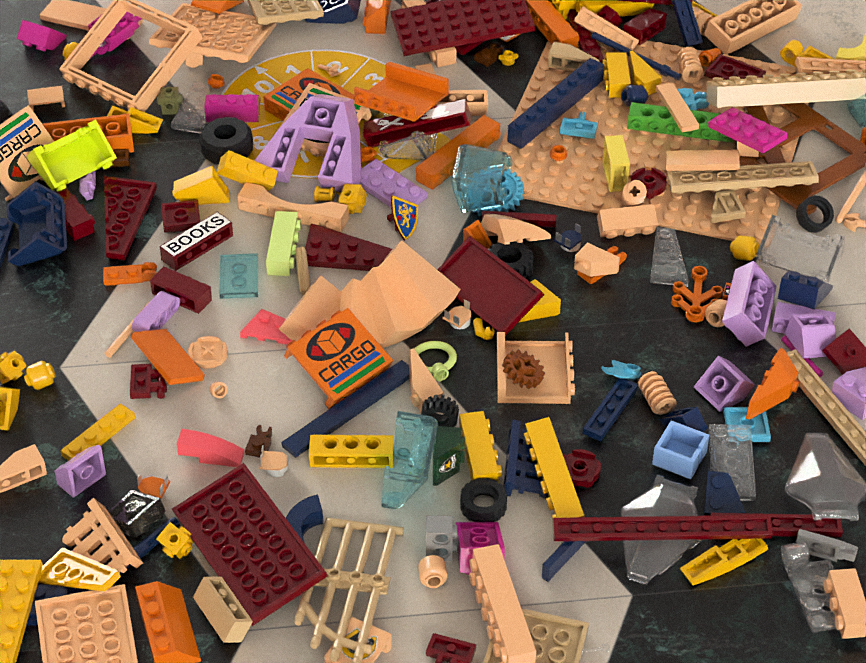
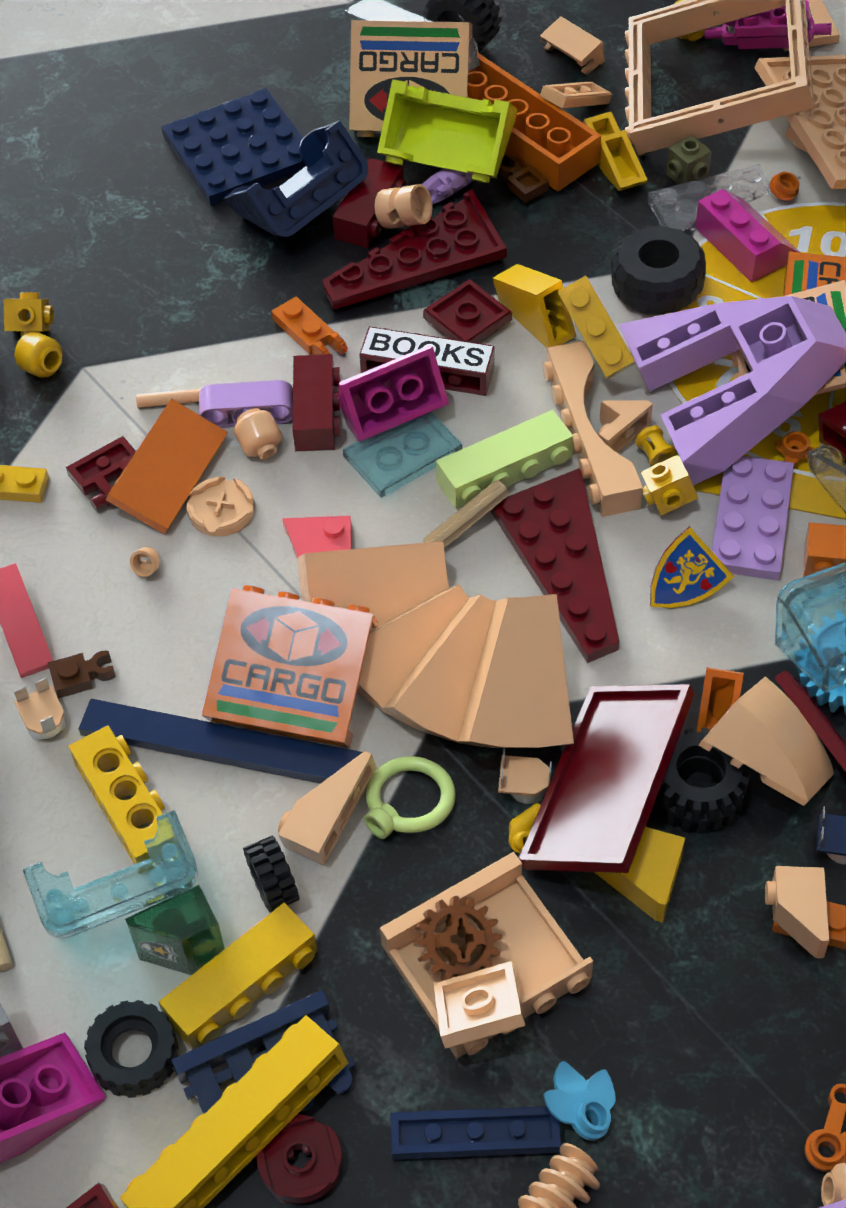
camera: 60 degrees right, 10 degrees up
(86, 111) = (576, 94): none -> light nougat tile
(95, 199) = (403, 206): none -> light nougat wheel
(180, 317) = (258, 433): none -> light nougat head
(213, 256) = (392, 393): none -> dark pink slope
(299, 194) = (623, 421): none -> light nougat slope
(561, 372) = (478, 1005): none -> light nougat plate

